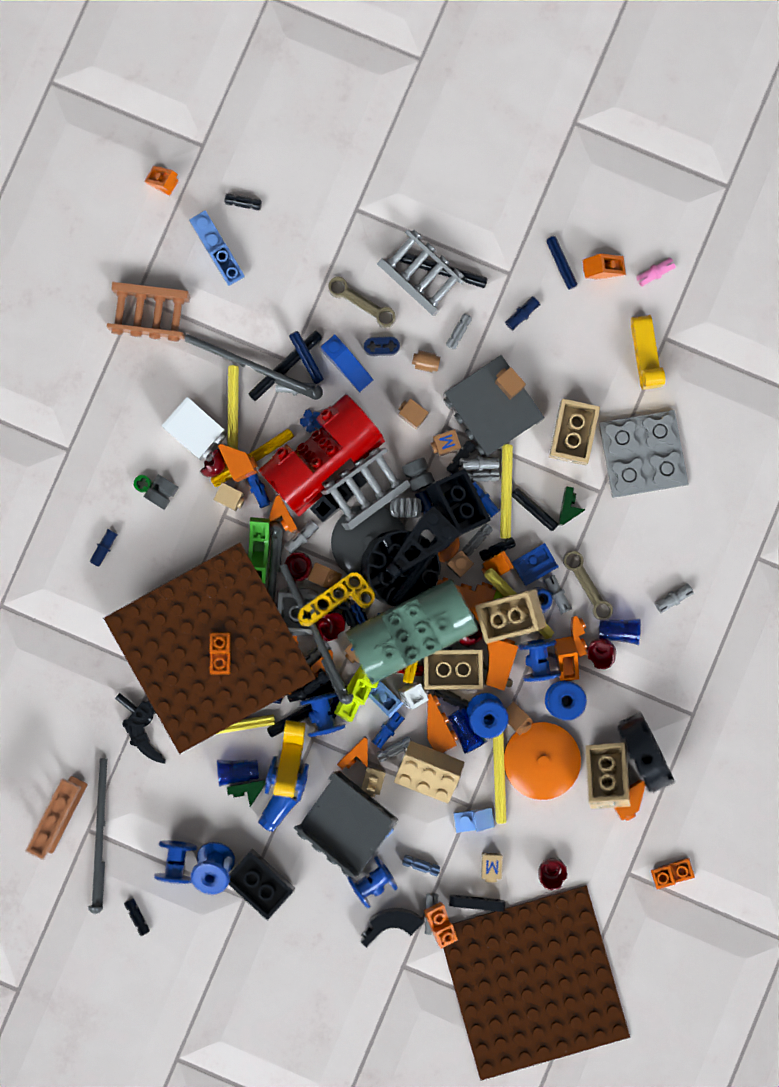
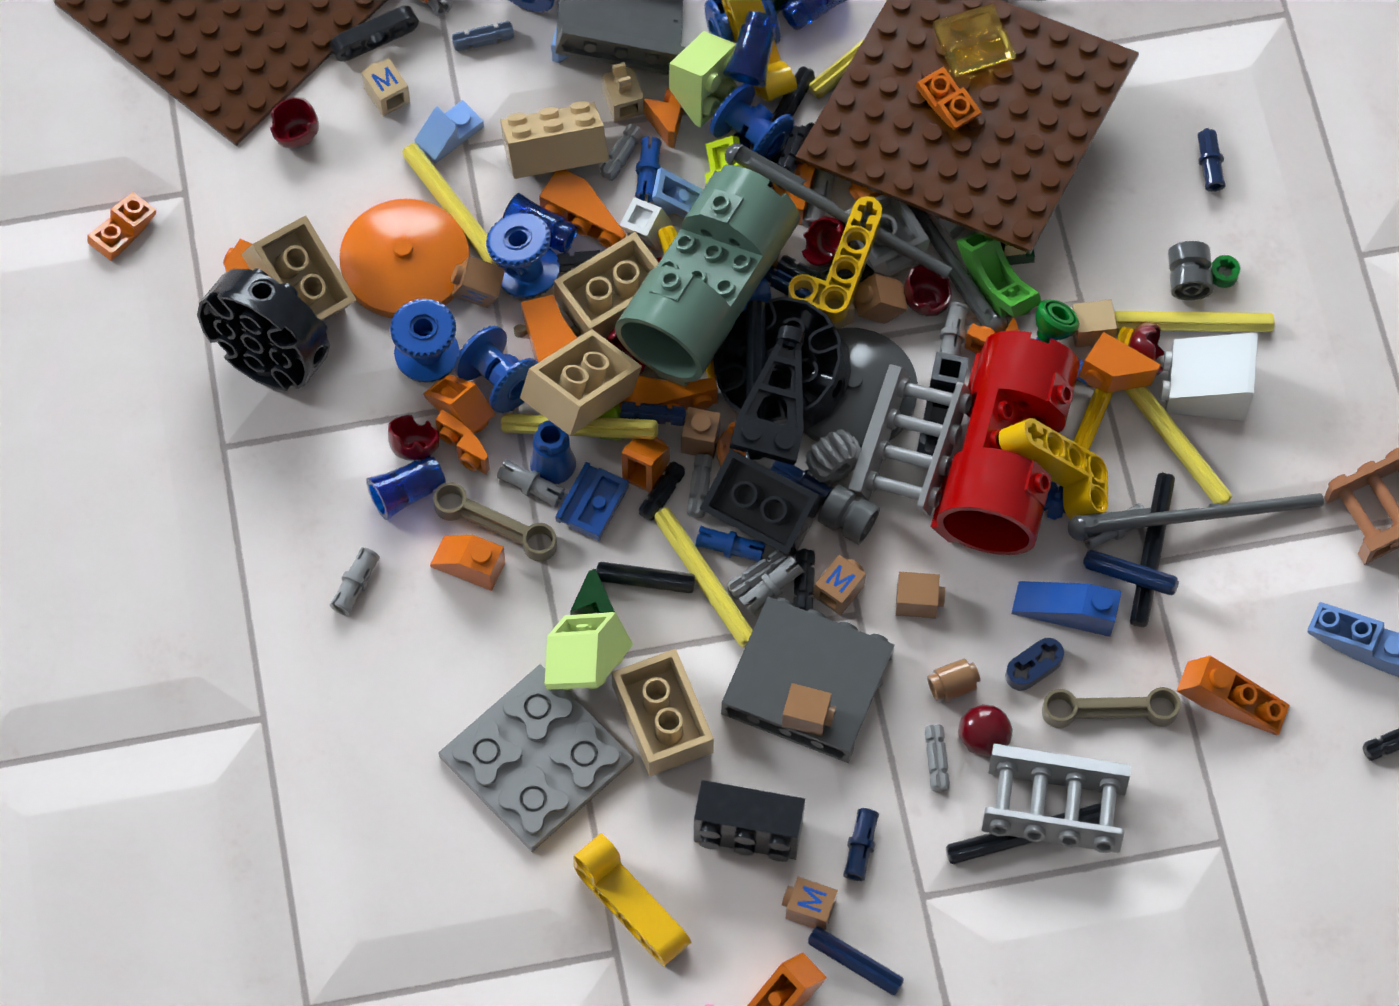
camera: 145 degrees right, 20 degrees down
(177, 467) = (1198, 321): none -> light yellow axle
(182, 679) = (973, 40): none -> clear yellow slope
(249, 504) = (1055, 320): none -> green brick
(295, 419) = (1069, 464): none -> yellow beam
(300, 747) = (752, 50): none -> clear blue plant
(302, 270) = (1231, 694): none -> orange slope
(329, 757) = (698, 76): none -> yellowish green slope
(427, 330) = (983, 728): none -> dark red hair
(480, 584) = (656, 412): none -> dark blue axle
(565, 299) = (809, 903): none -> medium nougat brick
(570, 351) = (748, 820): none -> black brick
(594, 481) = (584, 650): none -> yellowish green slope
(614, 573) = (470, 559): none -> orange slope

